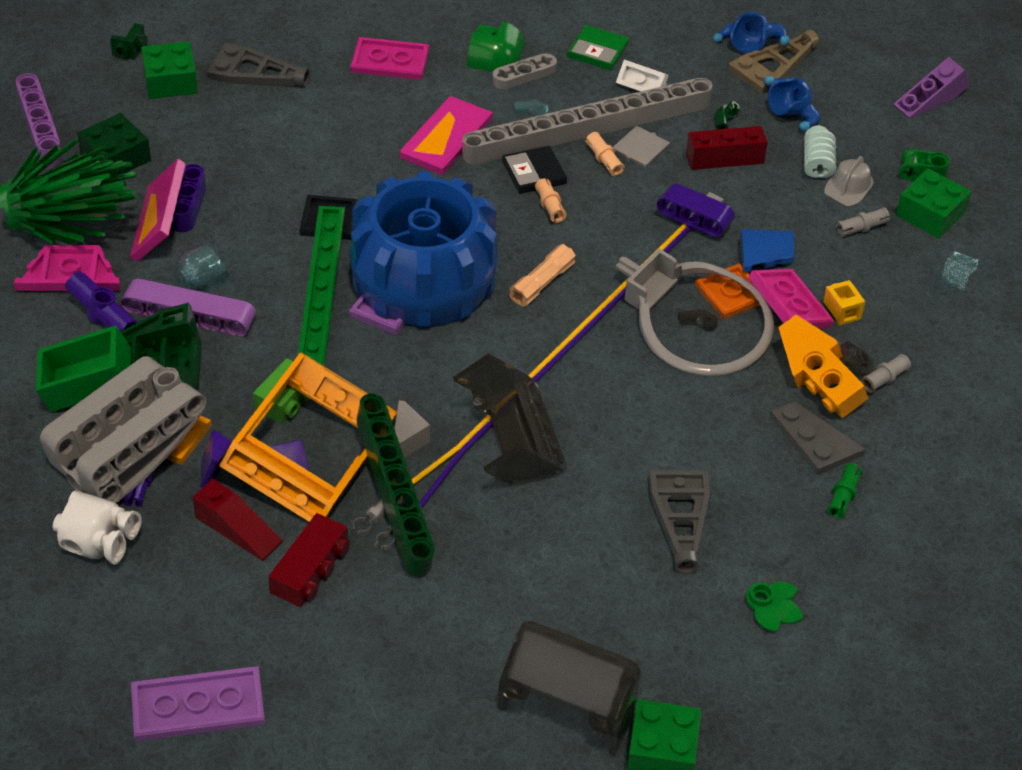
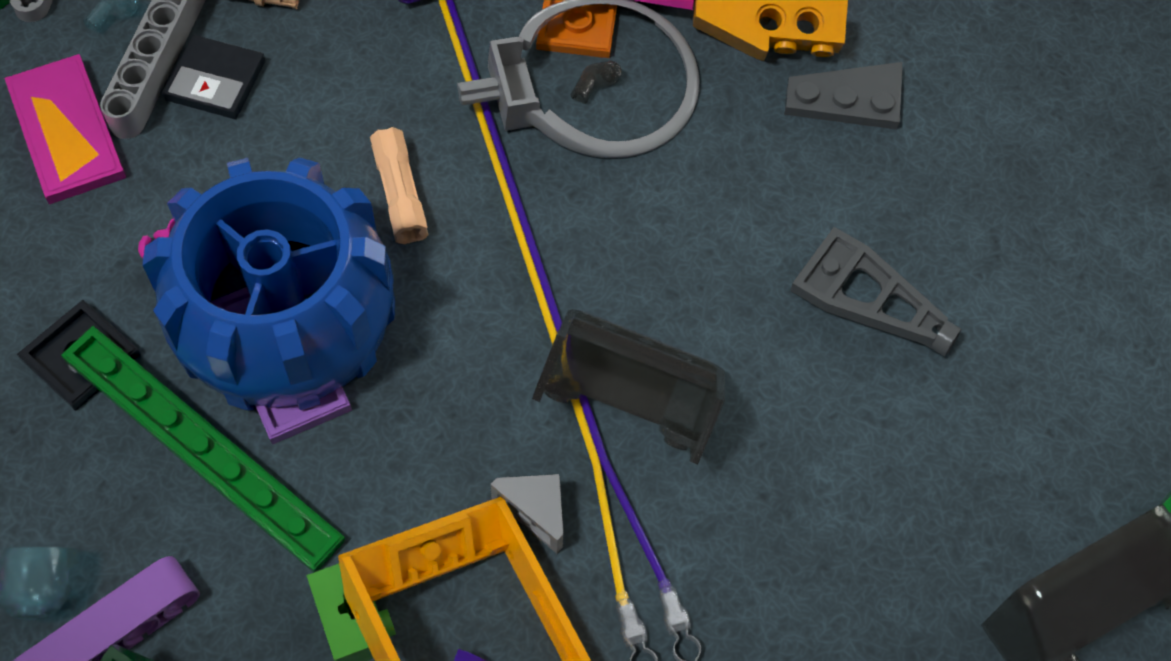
camera: 55 degrees left, 15 degrees up
(389, 467) = (650, 575): dark green beam -> none
(550, 200) = (284, 95): light nougat pin -> none
(777, 605) = (1058, 293): green plate -> none
(844, 490) = (946, 120): green pin -> none

